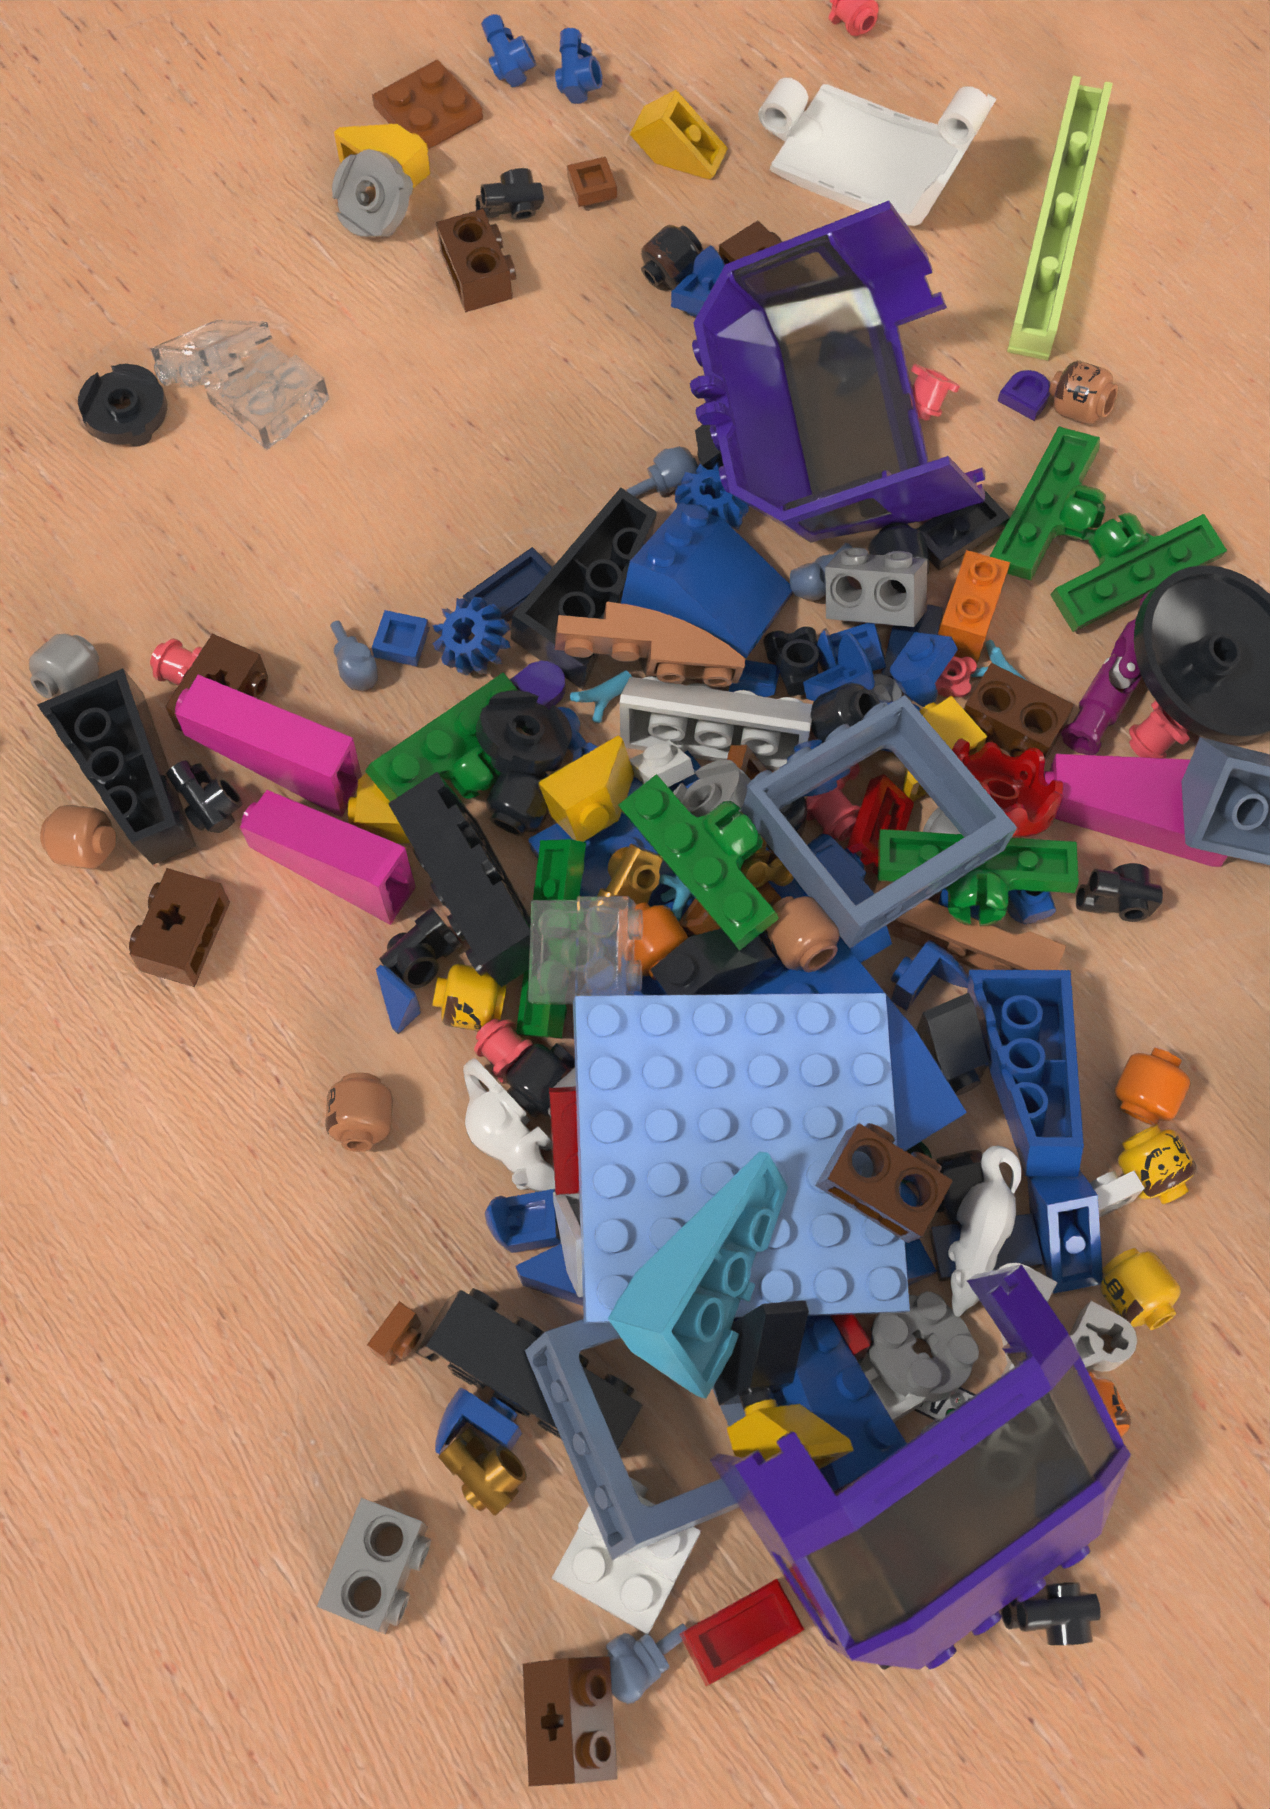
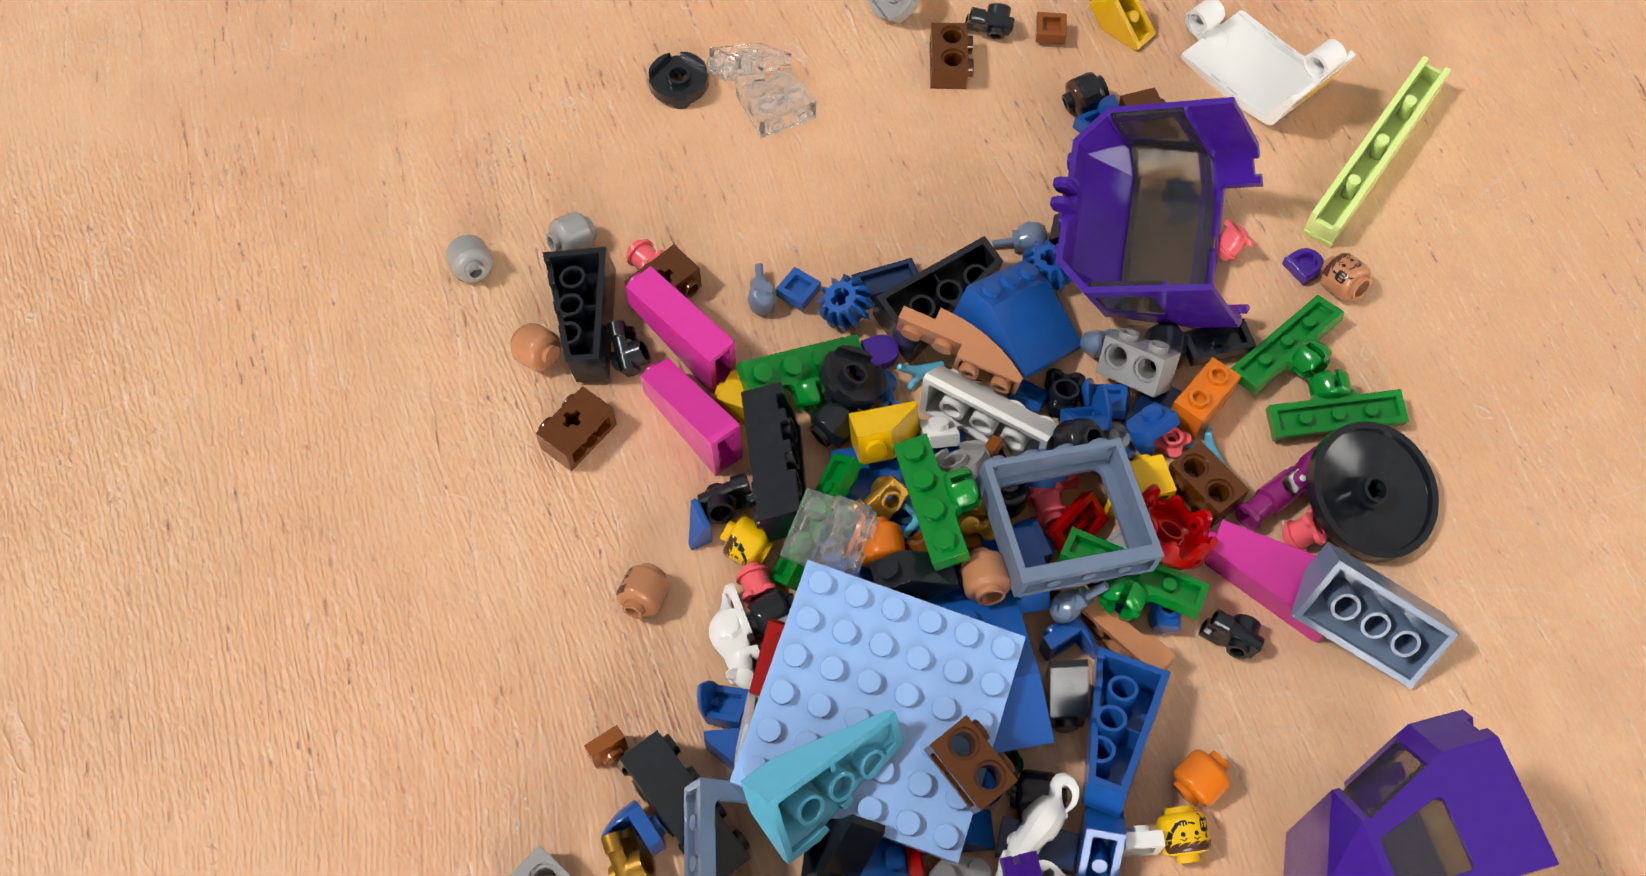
camera: 20 degrees right, 5 degrees down
(913, 929) = (1069, 603): none -> sand blue piece

